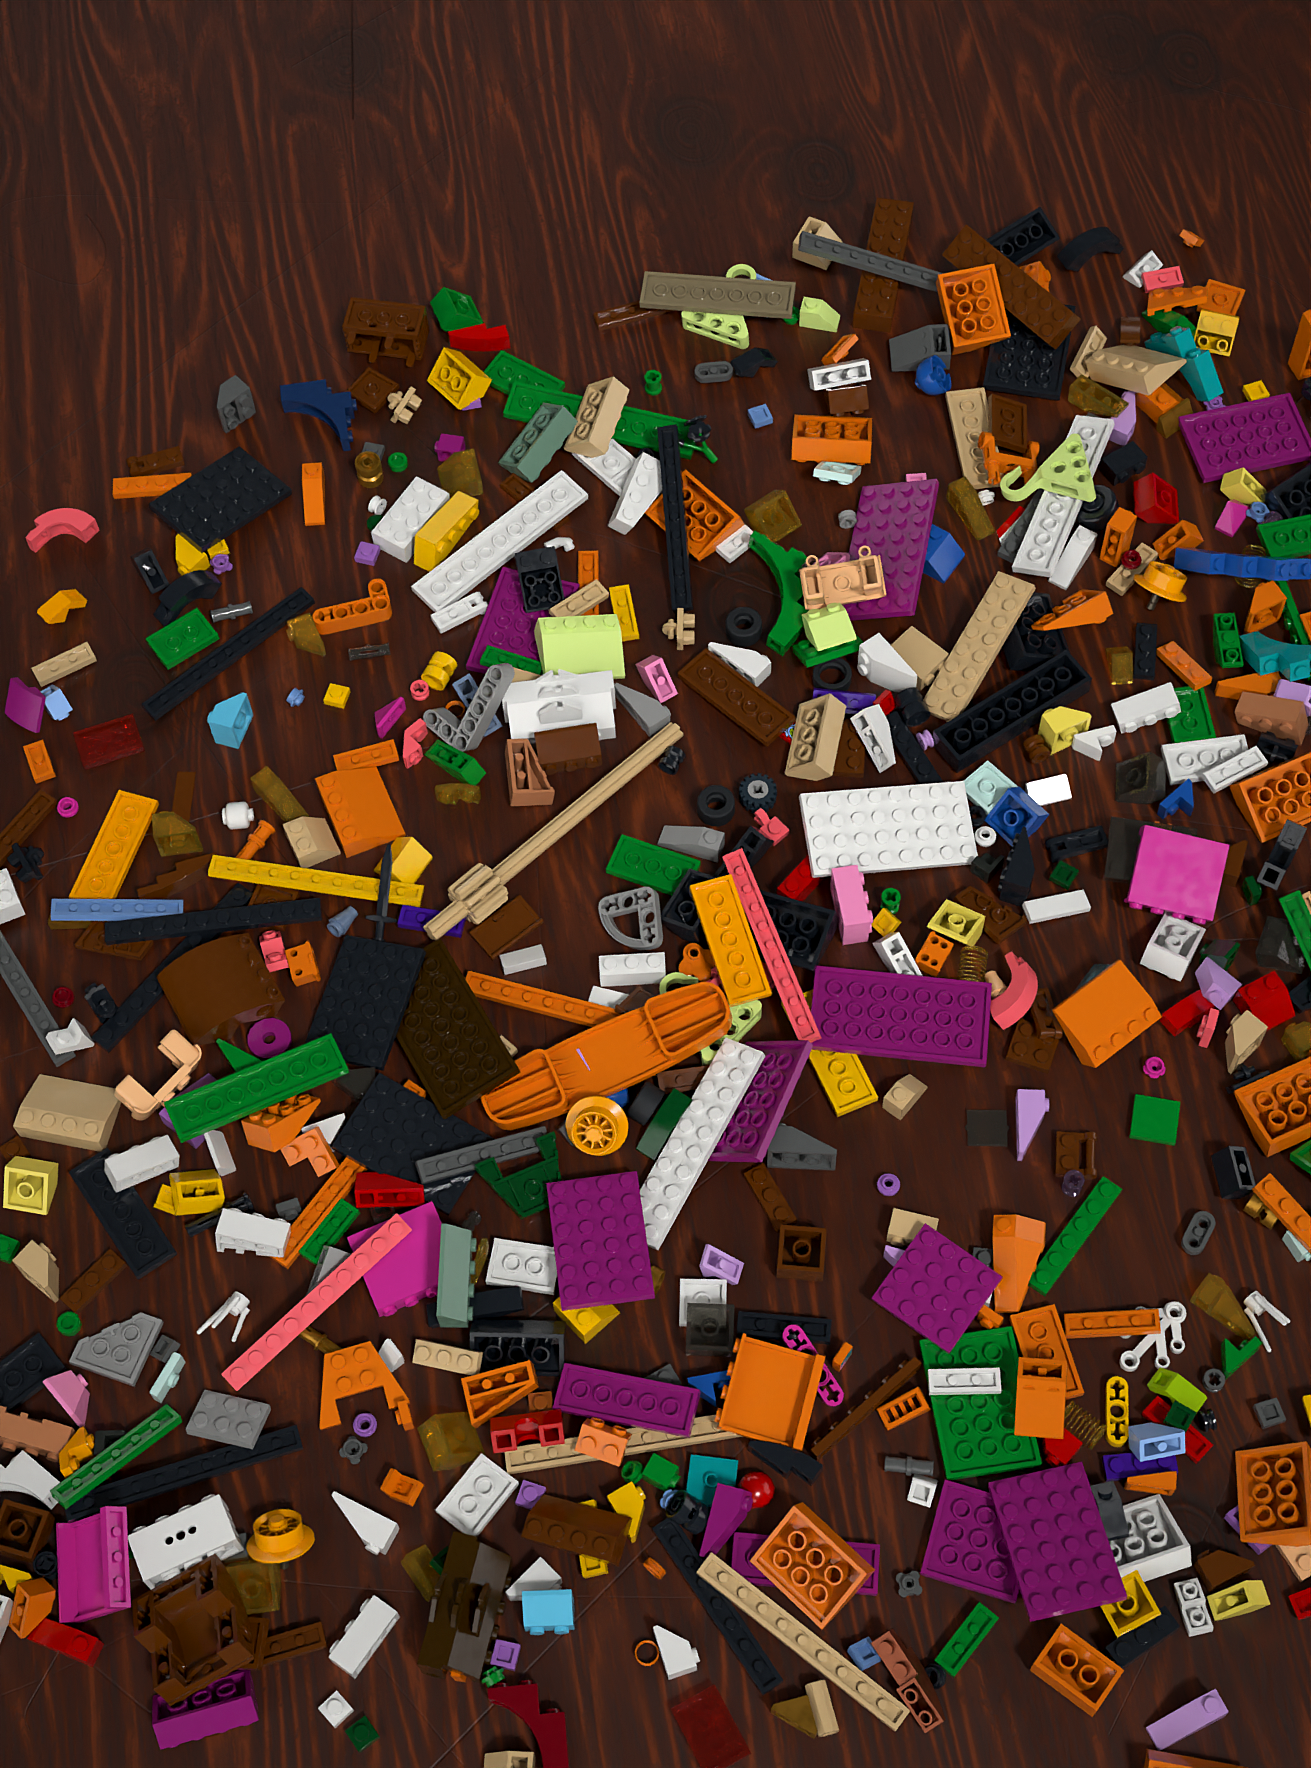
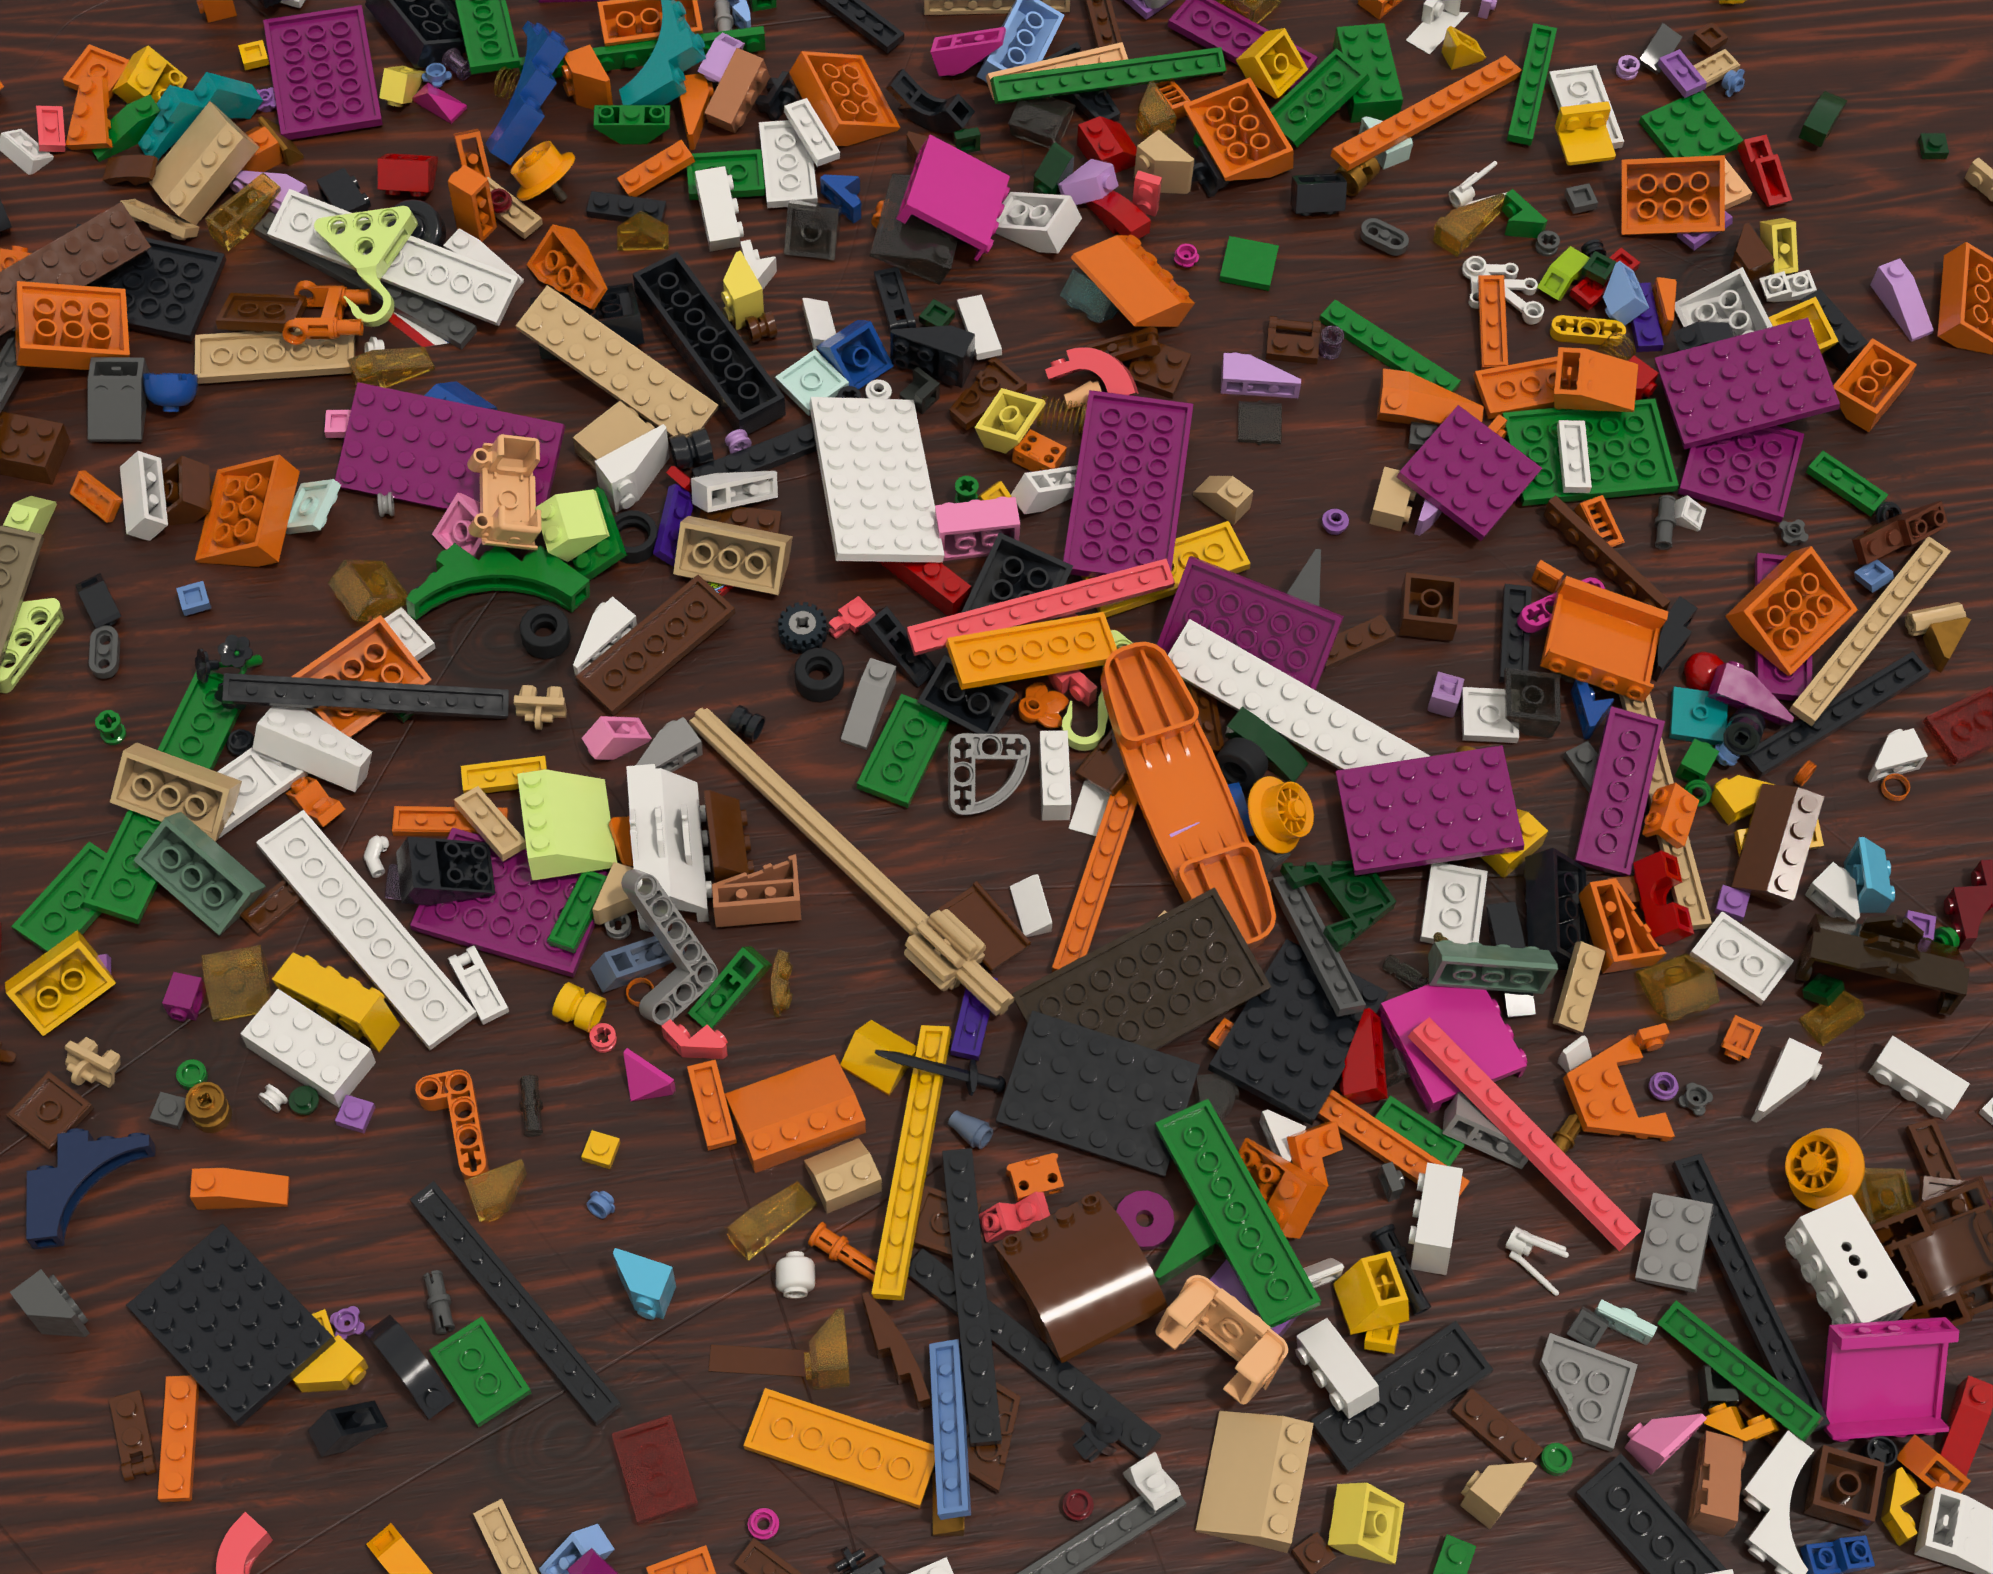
camera: 95 degrees left, 0 degrees up
(601, 504) = (312, 798): none -> orange slope

